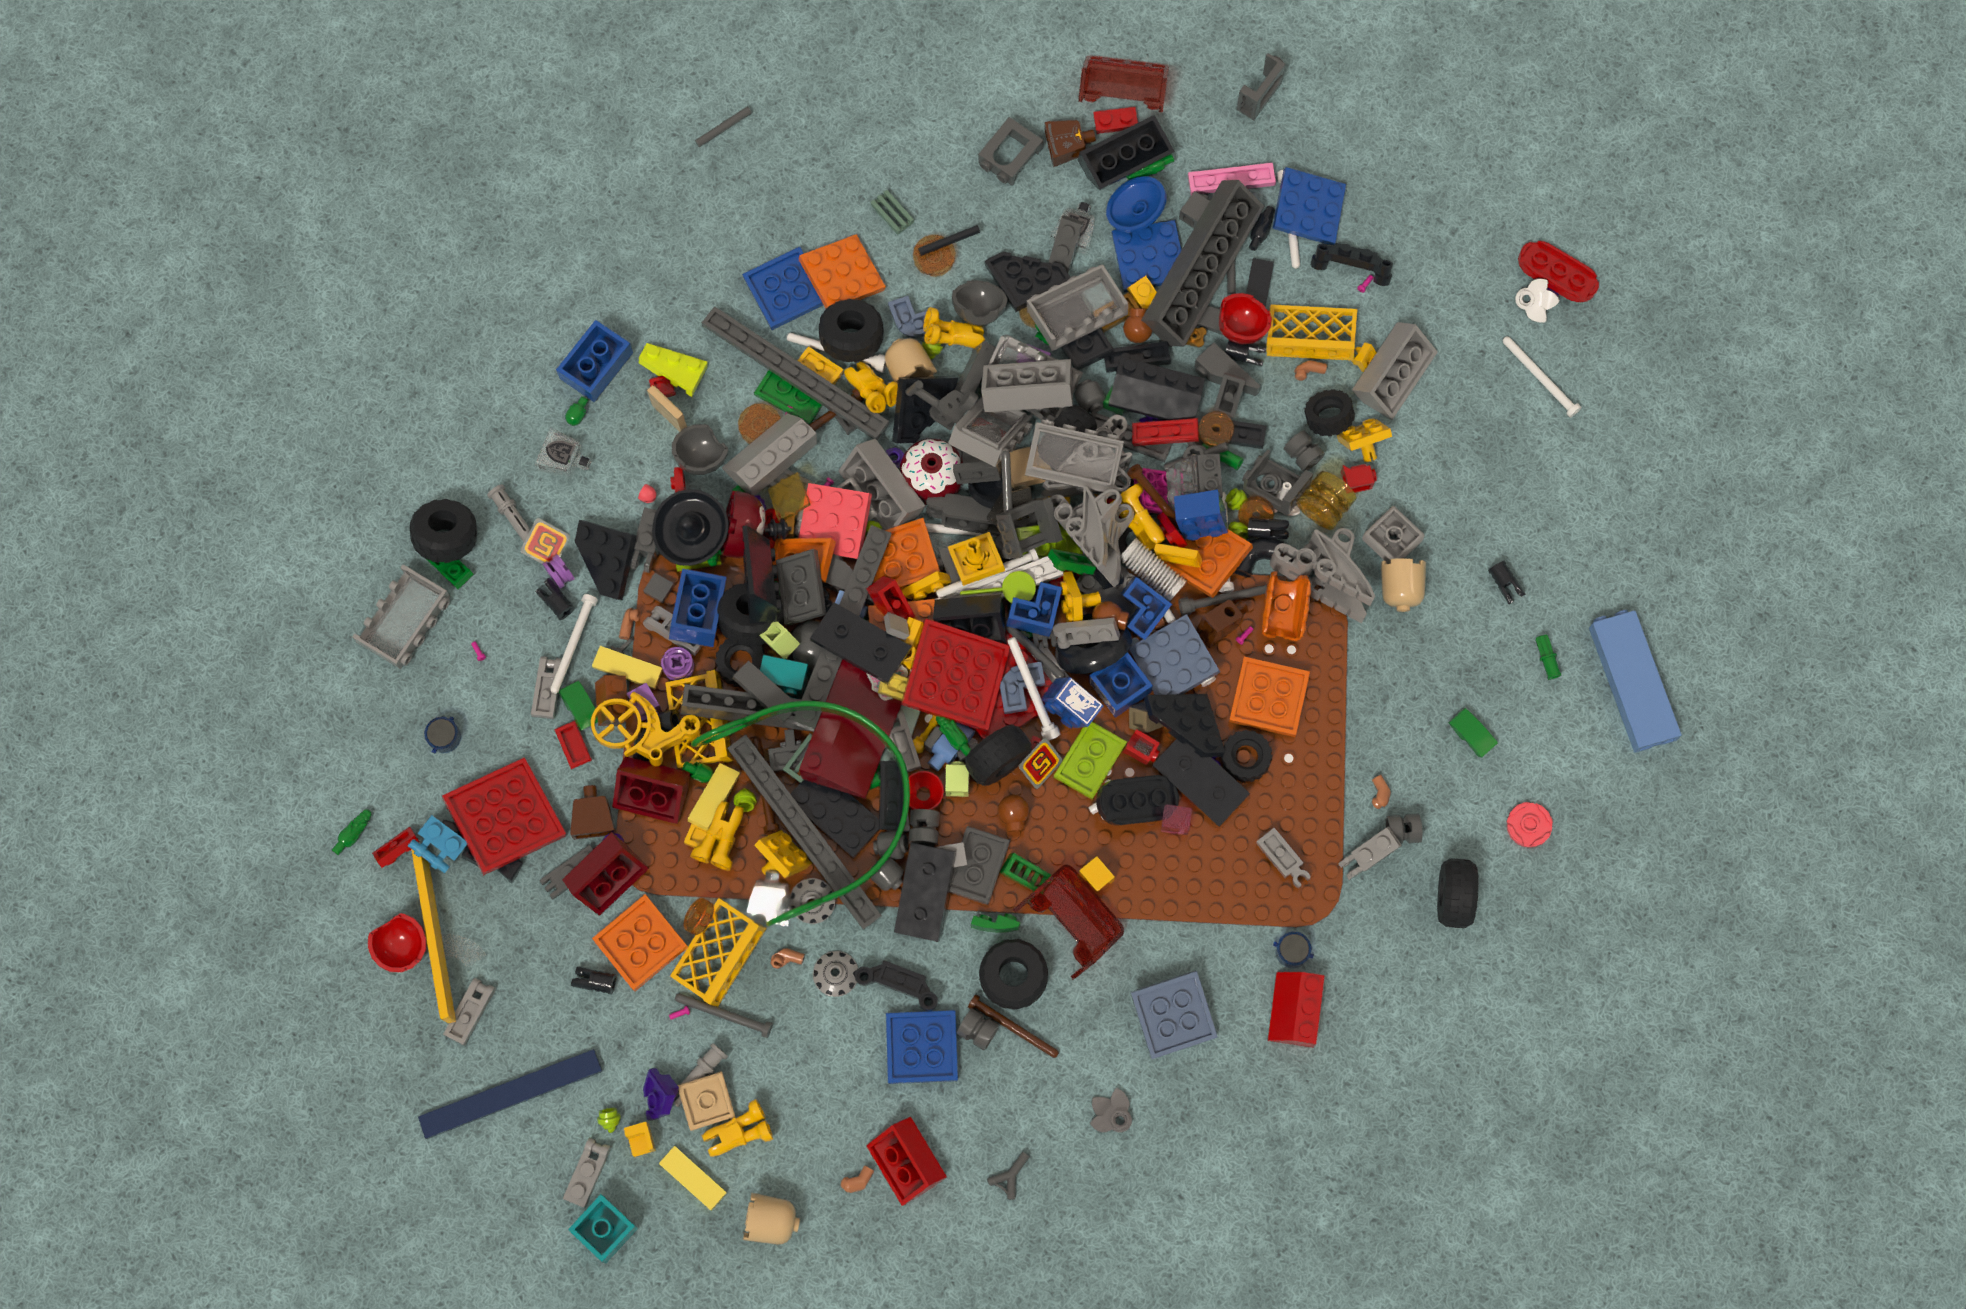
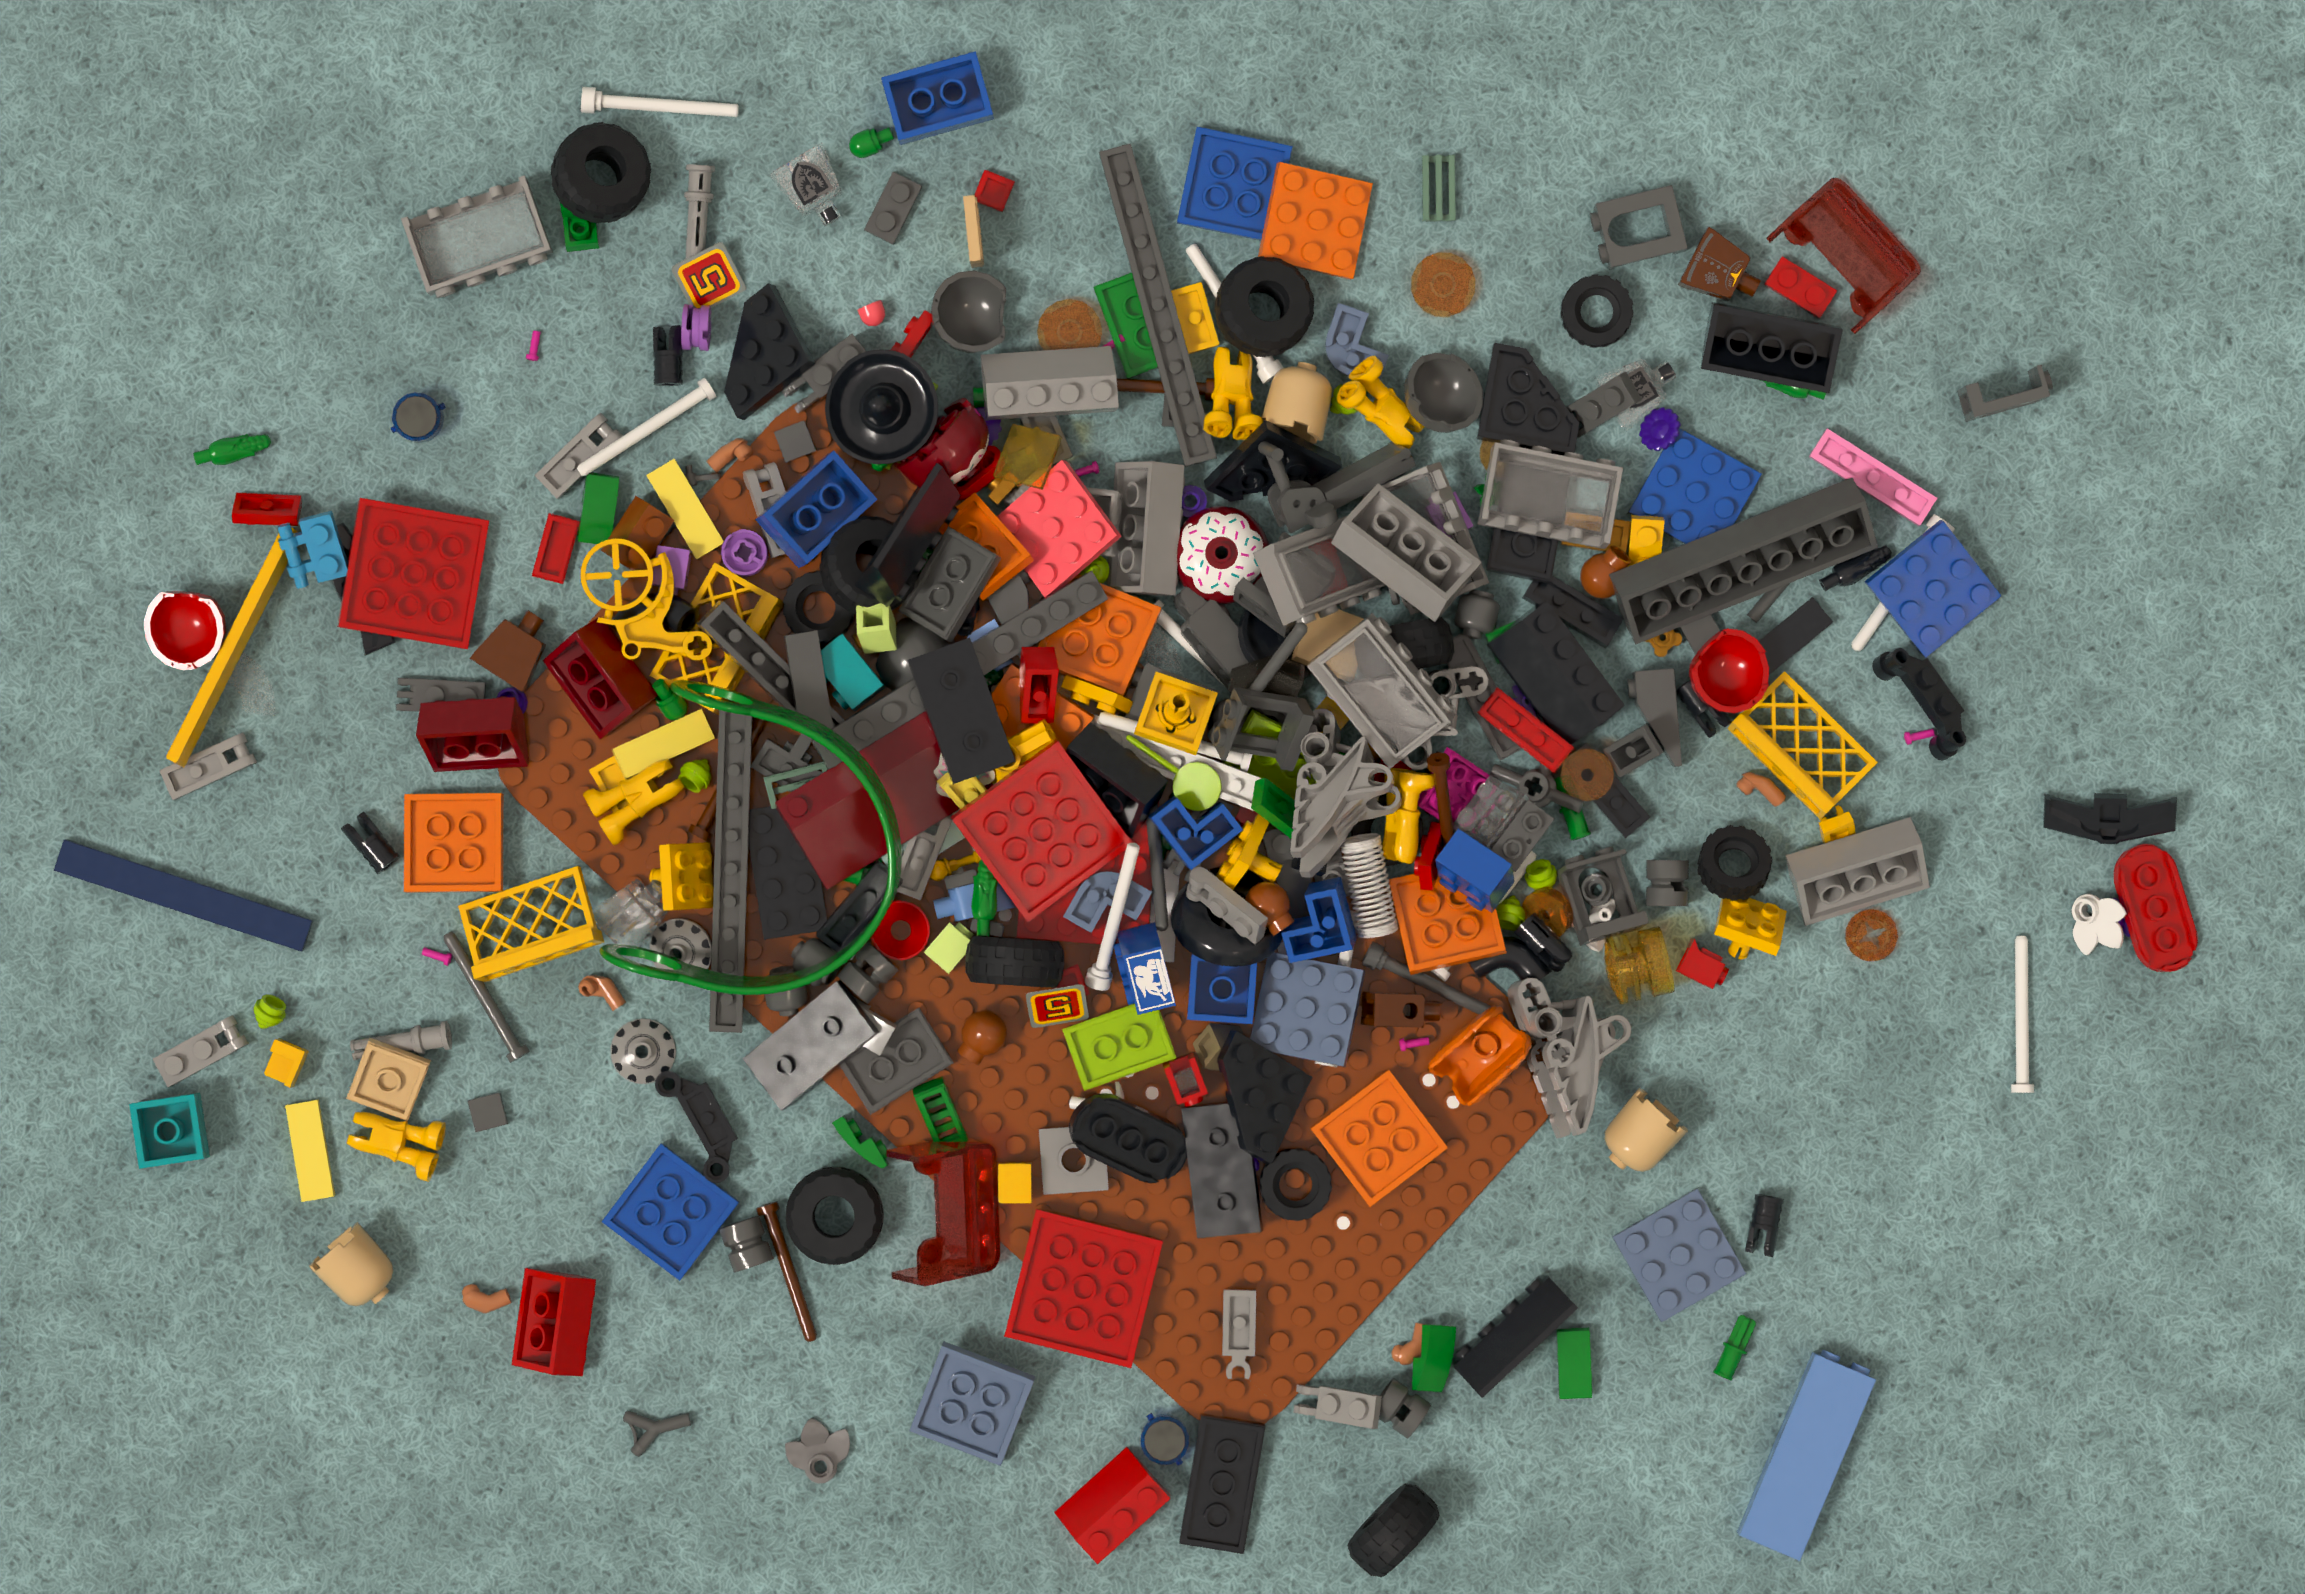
camera: 35 degrees right, 15 degrees up
(412, 501) = (594, 100): none -> white piece
(616, 435) = (893, 208): none -> dark grey plate
(660, 1093) = (345, 1033): dark purple plate -> none
(677, 367) = (1028, 182): neon yellow wing -> none
(698, 916) = (540, 866): clear orange piece -> none
(776, 1075) = (487, 1112): none -> dark grey tile
(778, 529) = (982, 487): black wheel -> none
(896, 626) = (1018, 723): light grey tile -> none
(948, 240) = (1473, 283): black bar -> none
(1017, 192) = (1589, 287): none -> black tyre
(1104, 238) = (1659, 429): none -> dark purple piece
(1117, 855) = (1054, 1175): none -> light grey piece
(1136, 204) = (1727, 407): blue dish -> none
(1176, 819) = (1155, 1192): clear pink panel -> none
(1178, 555) = (1411, 893): yellow tile -> none
(1181, 902) = (1083, 1288): none -> red plate
(1193, 209) = (1796, 482): dark grey brick -> none
(1344, 948) = (1222, 1483): none -> black plate
(1393, 523) = (1696, 1083): light grey brick -> none
(1401, 791) = (1437, 1351): none -> green slope
(1429, 741) = (1514, 1335): none -> black slope
(1435, 405) = (1857, 929): none -> clear orange gear
(1476, 634) = (1679, 1255): none -> sand blue plate
(1496, 246) = (2109, 818): none -> black plate
(1529, 824) = (1537, 1515): coral tile -> none

